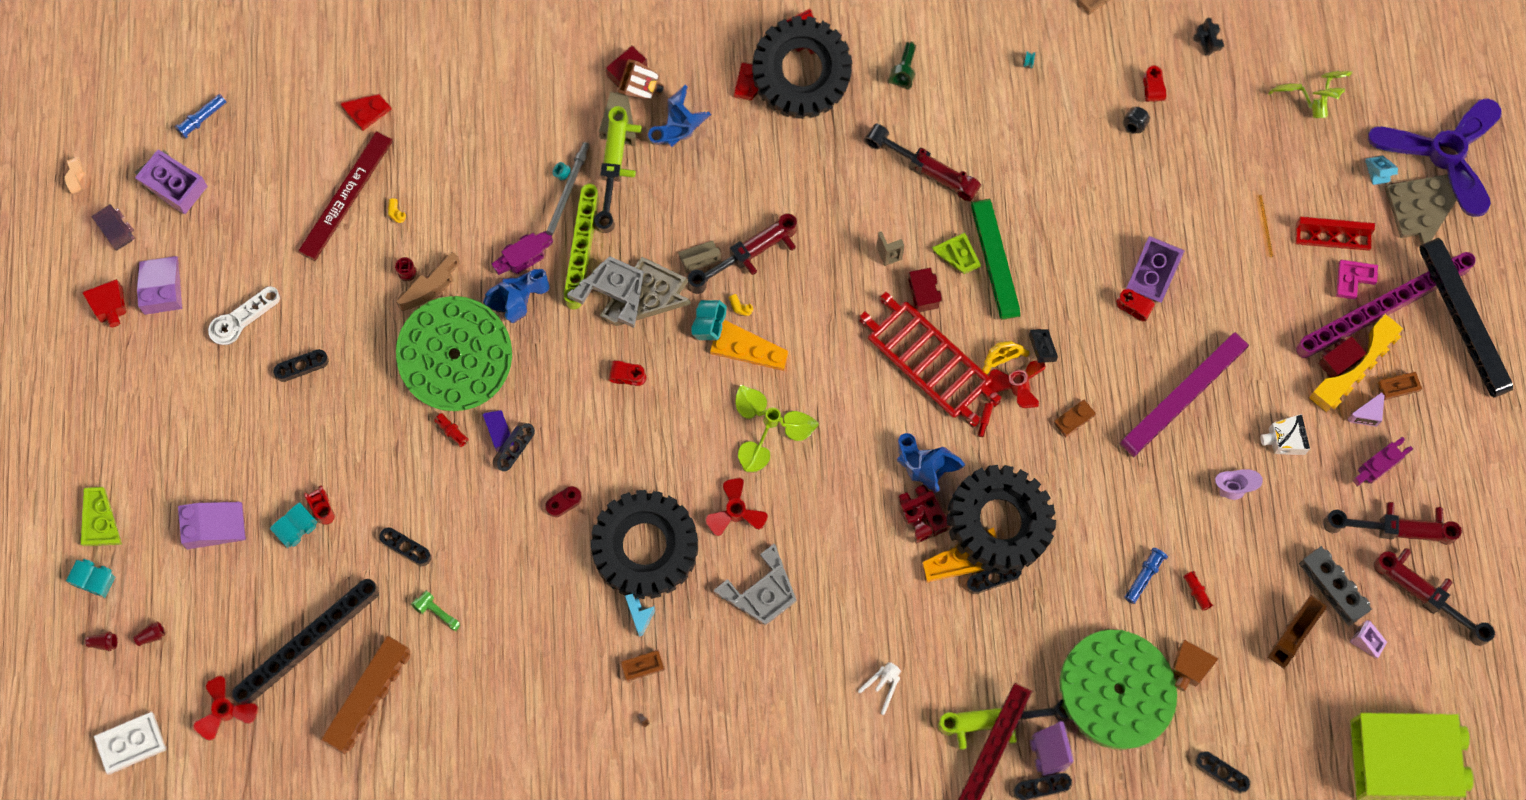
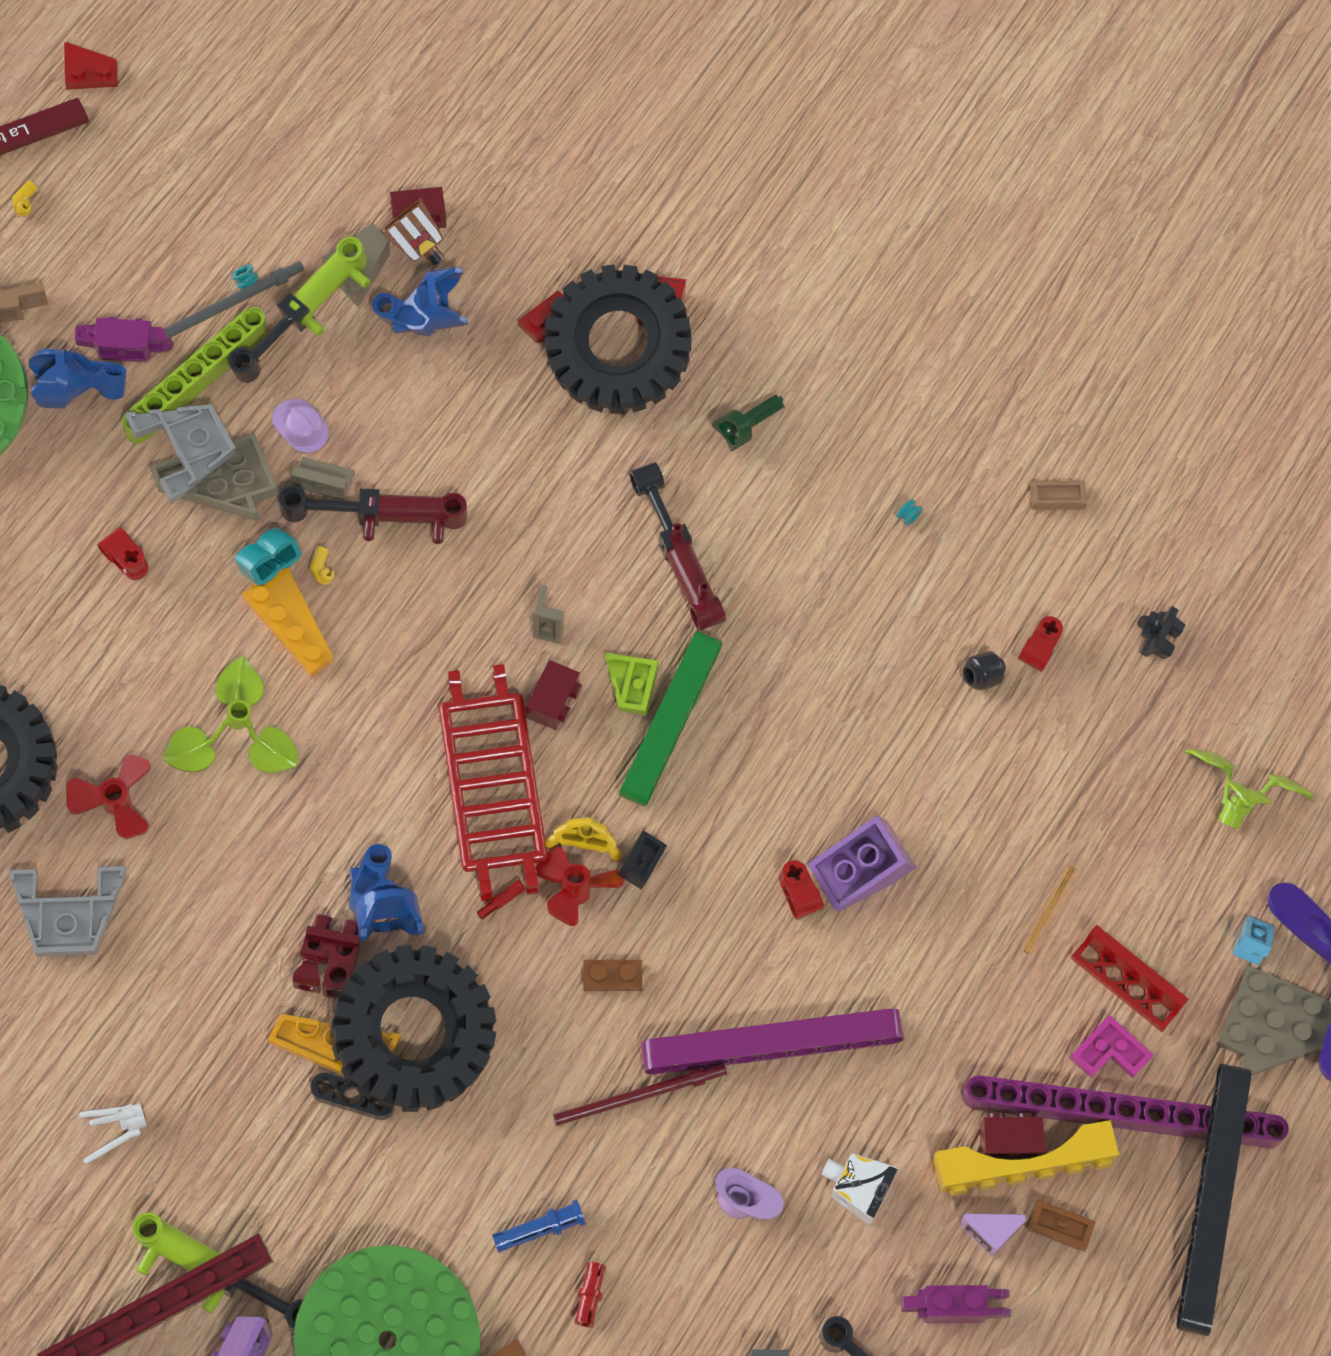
camera: 30 degrees right, 5 degrees down
(661, 235) = (300, 425): none -> lavender piece
(1160, 441) = (695, 1077): none -> dark red bar

